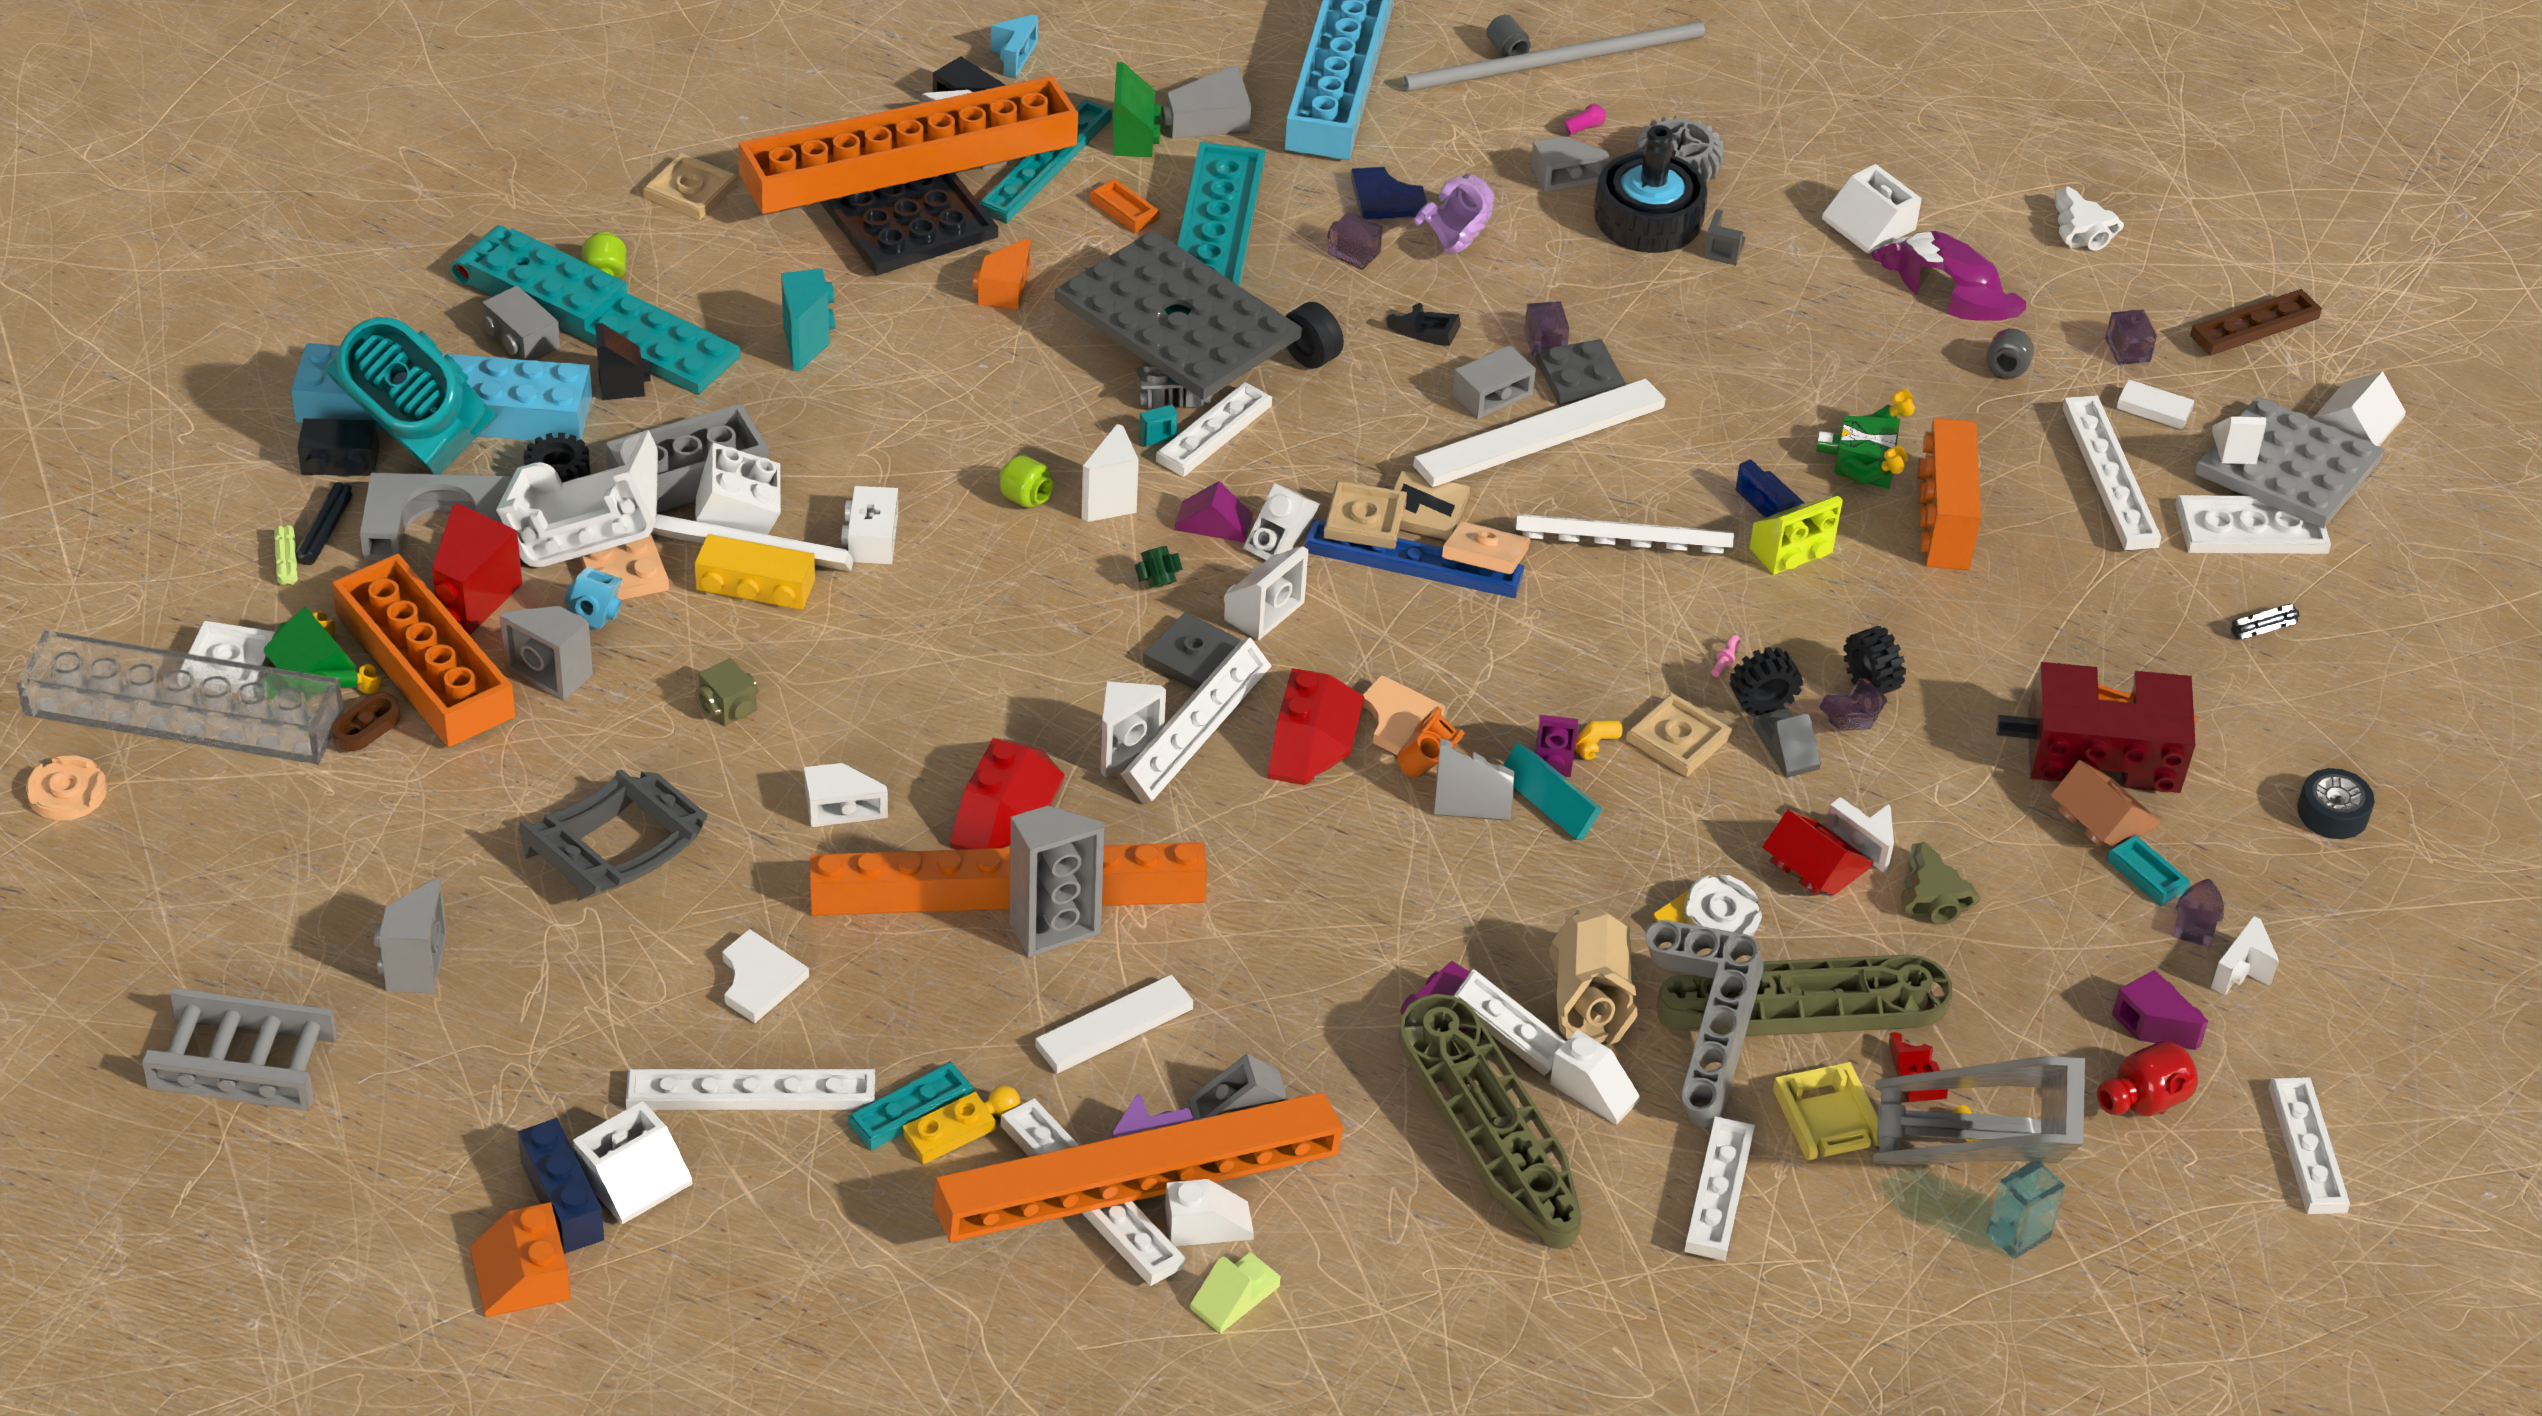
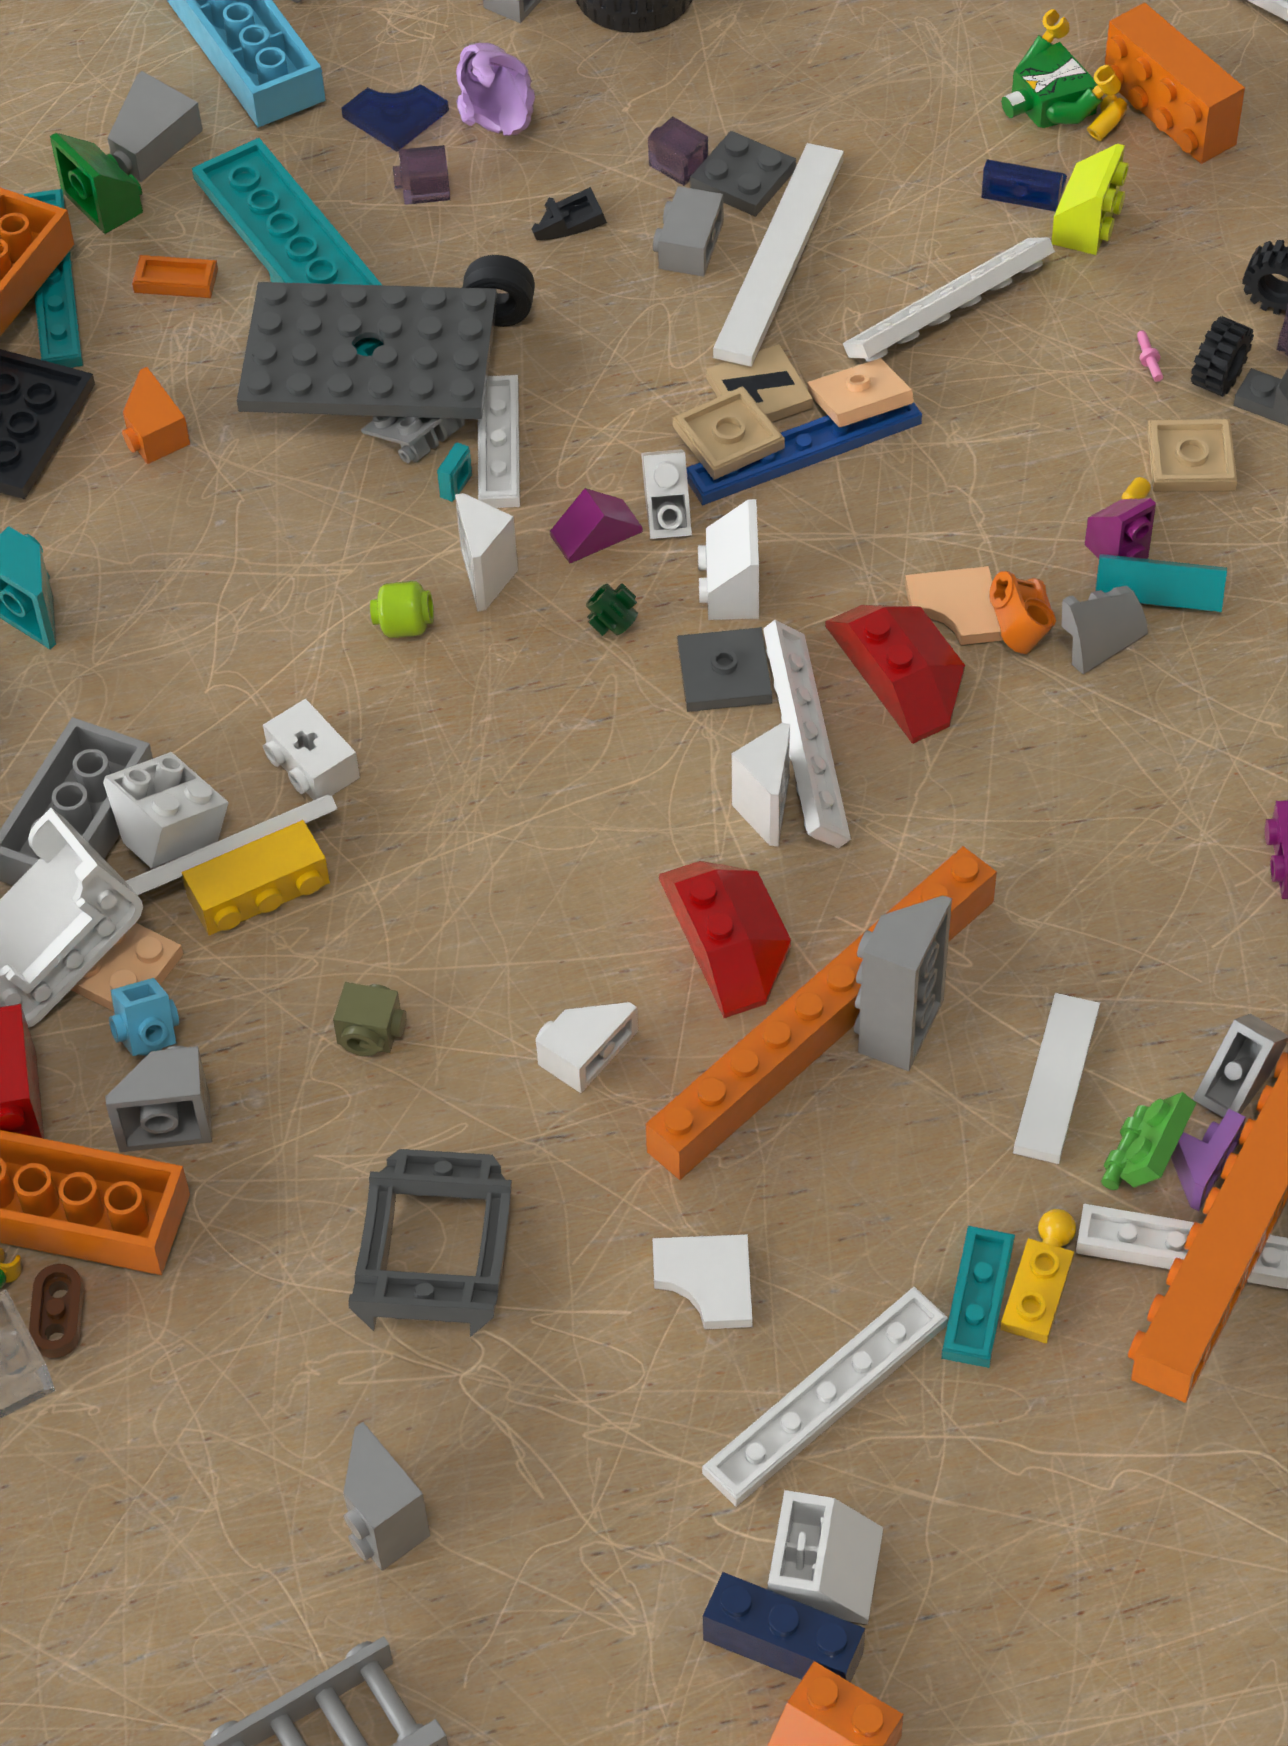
camera: 35 degrees left, 10 degrees up
(1100, 1093) = (1148, 1142): none -> bright green plate
(1895, 492) = (1112, 111): none -> yellow arm

